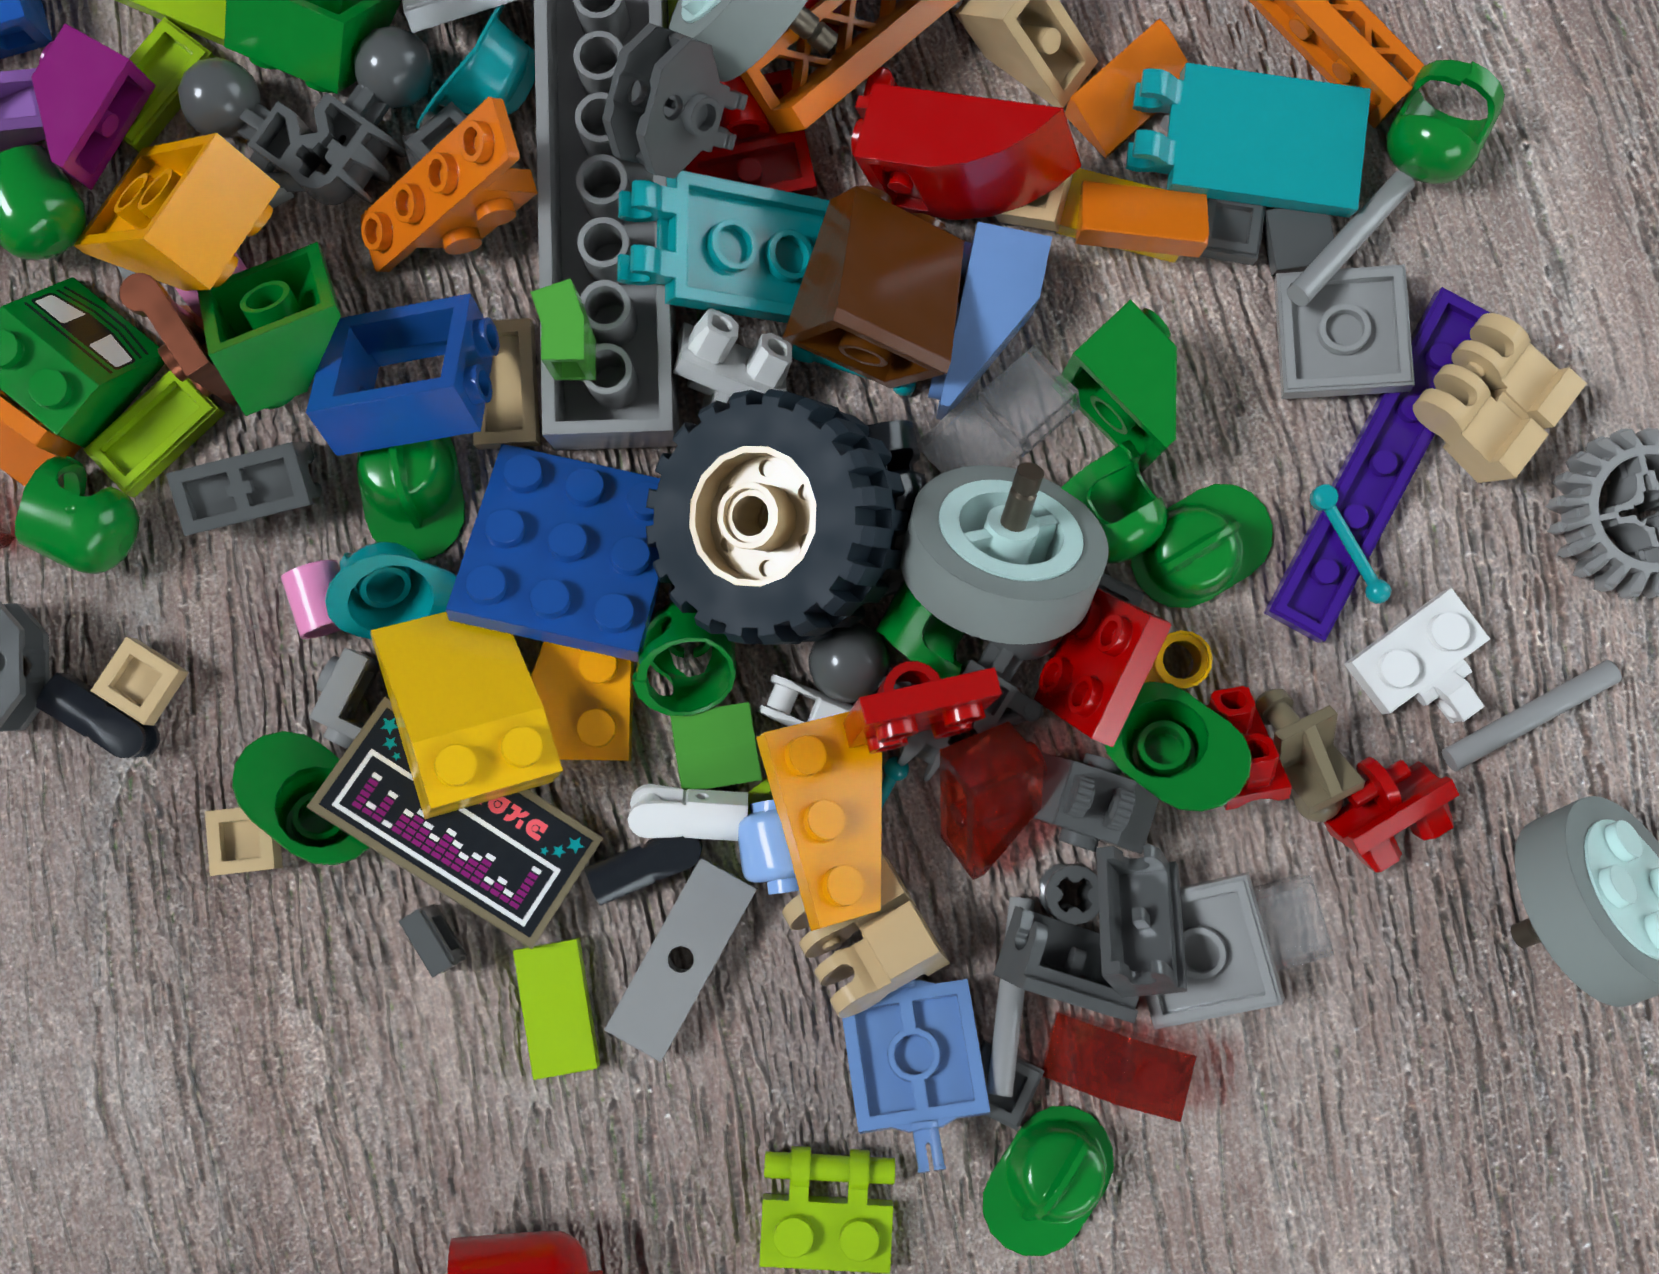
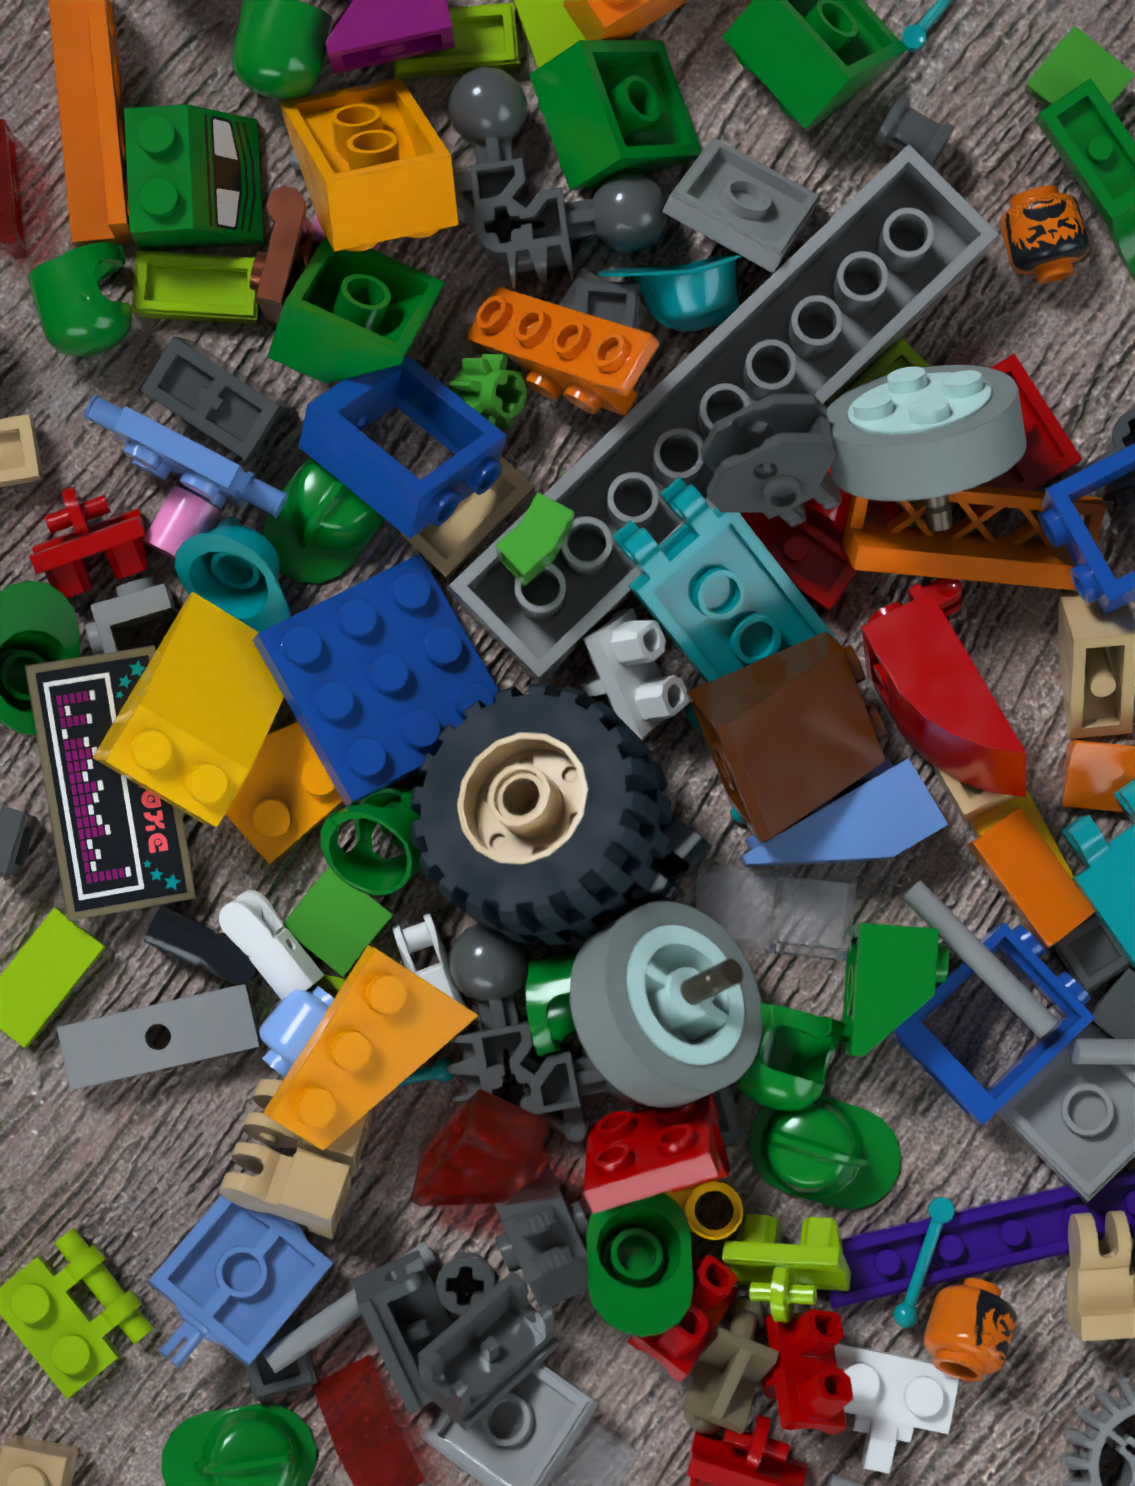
camera: 50 degrees right, 0 degrees up
(254, 552) = (164, 451): none -> medium blue plate
(258, 708) = (63, 555): none -> red hips
(426, 277) = (491, 388): none -> bright green gear
(933, 703) = (510, 1062): red plate -> none
(1175, 298) = (980, 959): none -> light grey bar
(1240, 273) = (1061, 992): none -> blue window
(1274, 647) = (787, 1271): none -> lime hips
(1366, 704) = (806, 1373): none -> red hips
(1432, 553) = (970, 1330): none -> orange head

